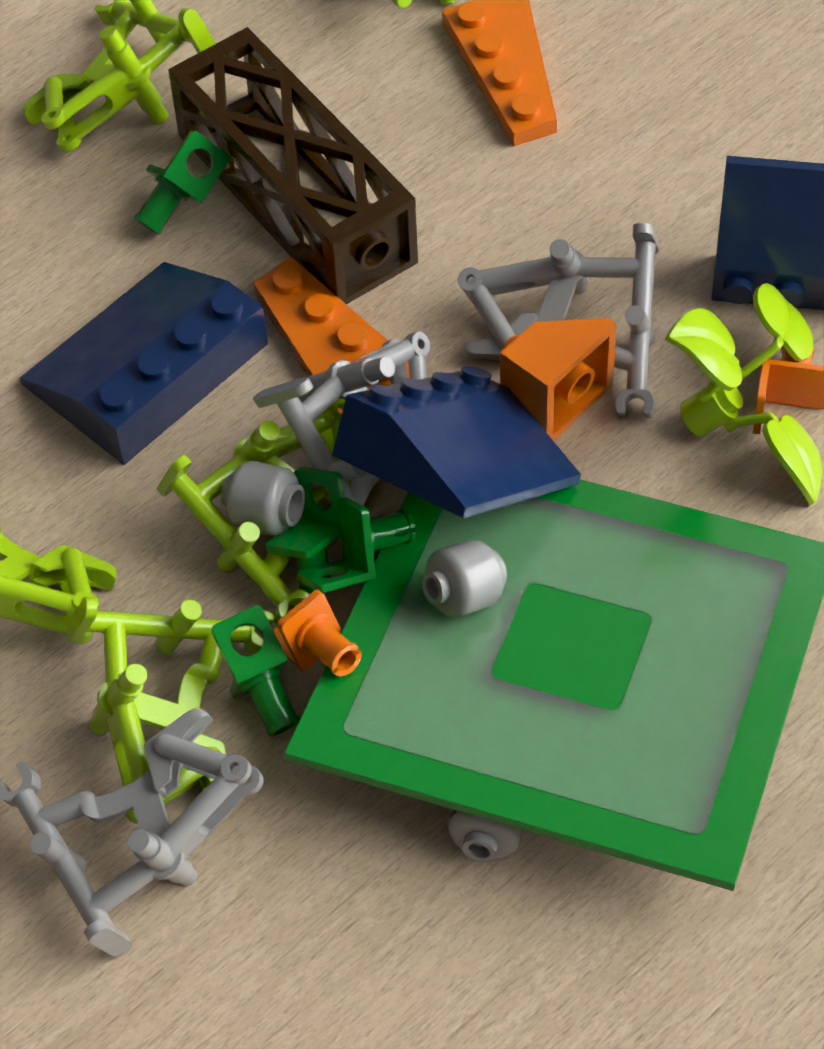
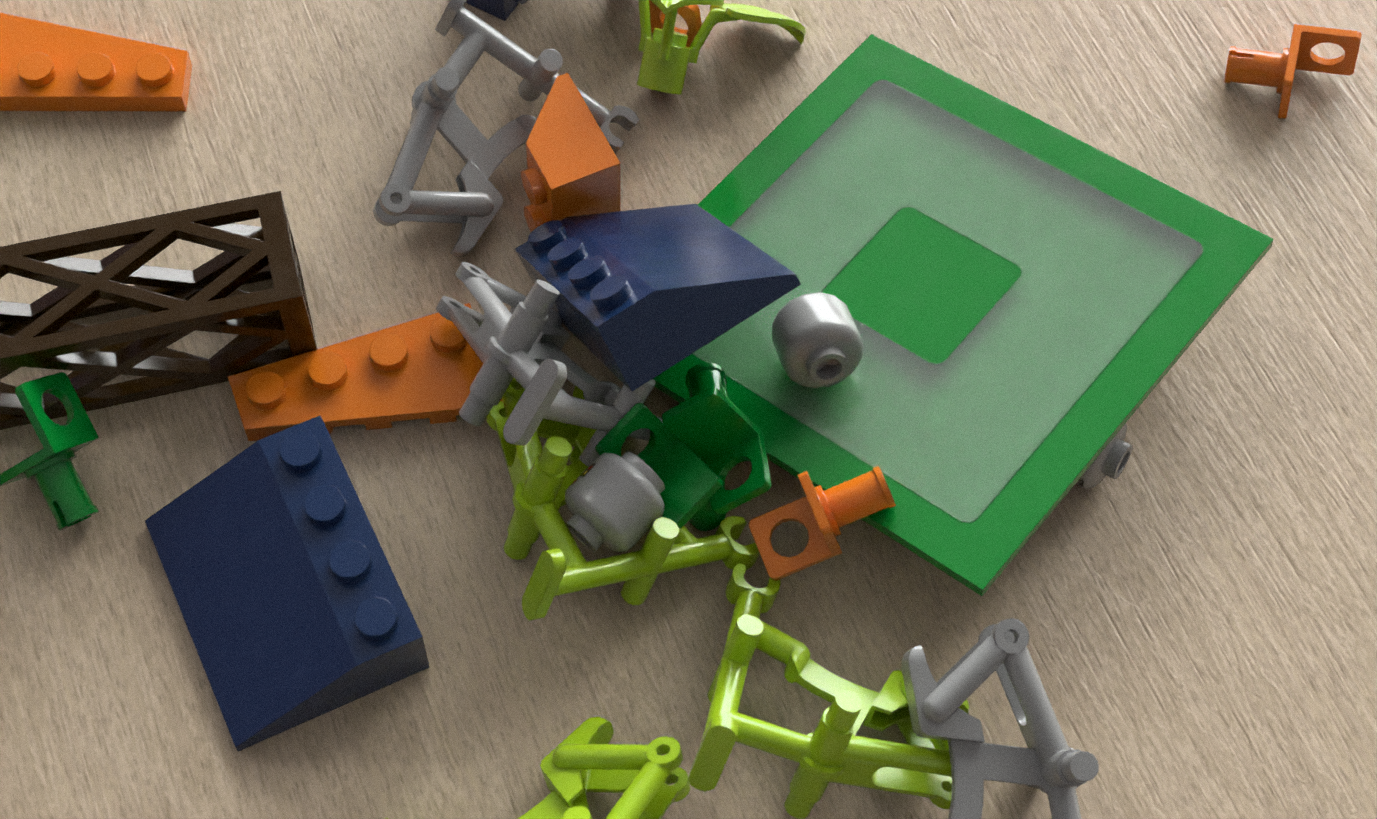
camera: 75 degrees left, 5 degrees up
(259, 672) = (827, 596): green bracket -> none

